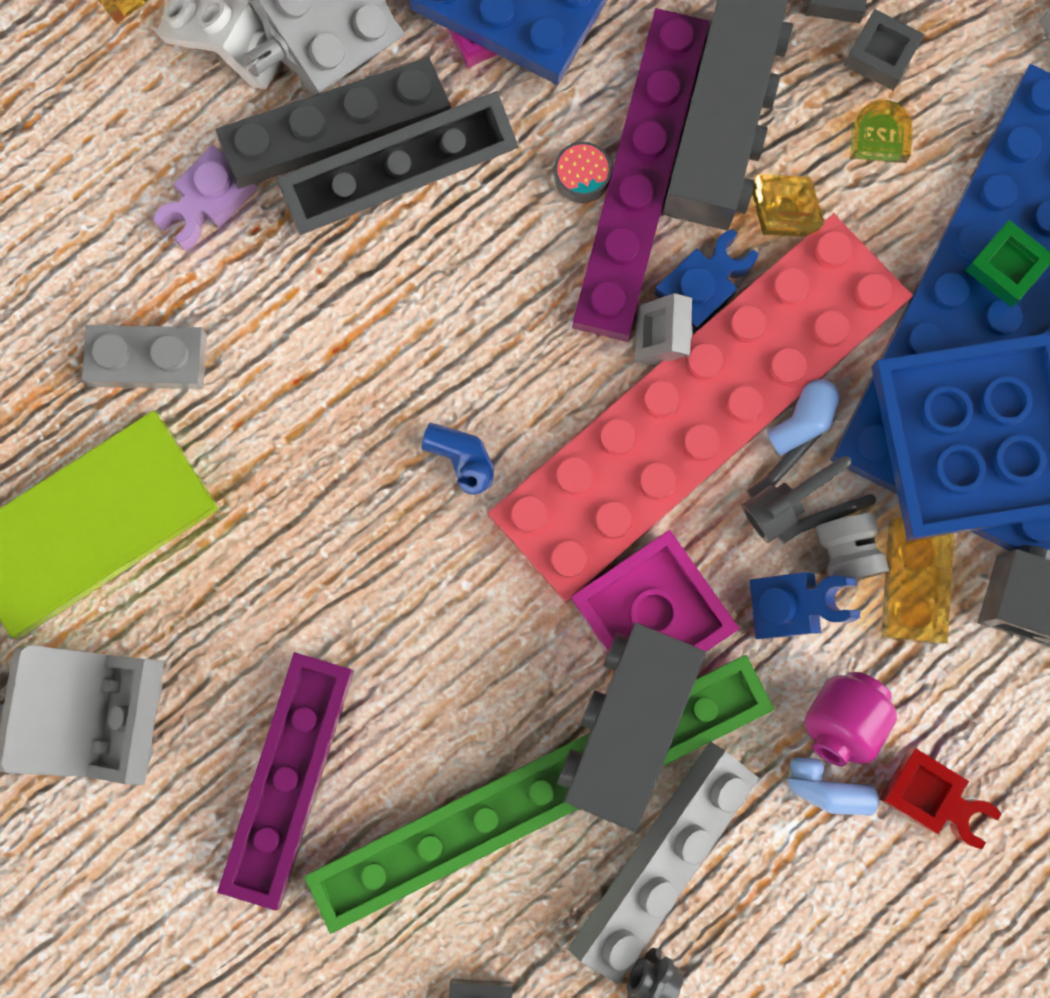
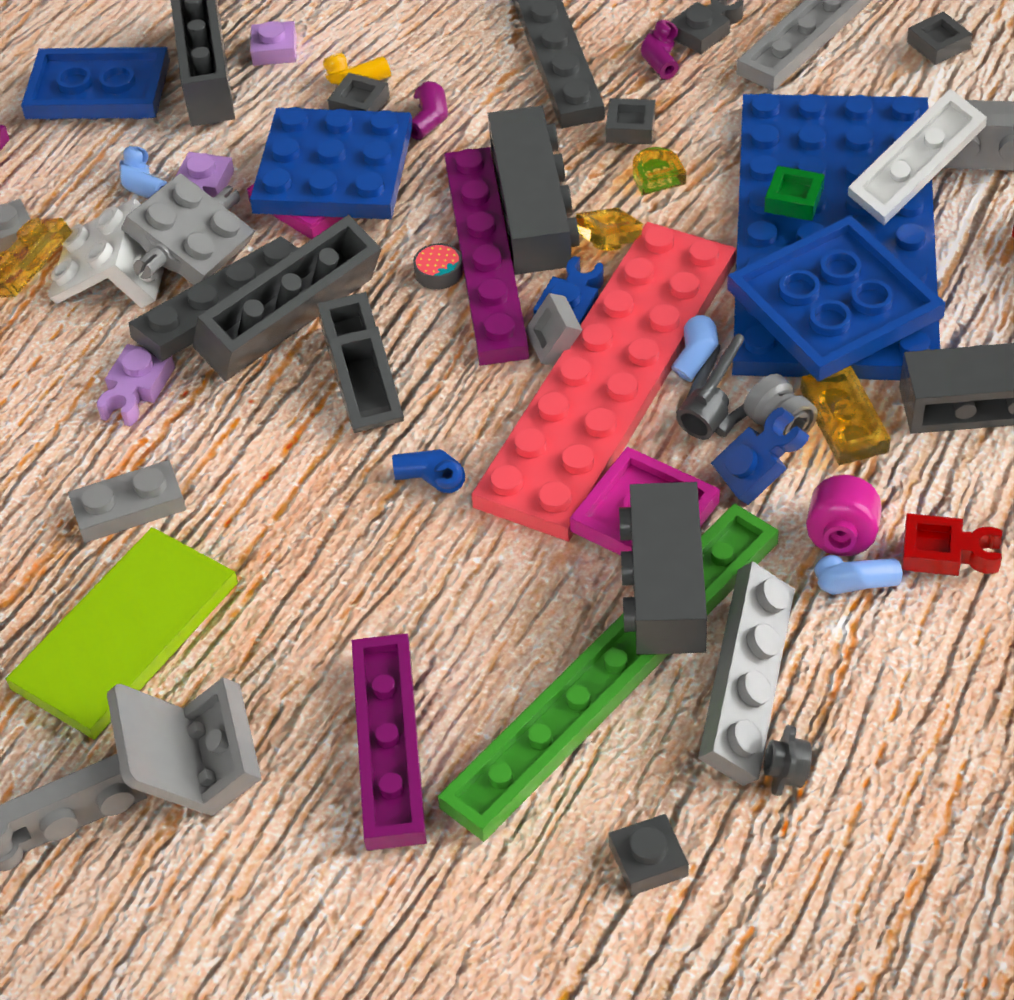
camera: 20 degrees left, 30 degrees down
(441, 286) = (359, 362): none -> dark grey slope

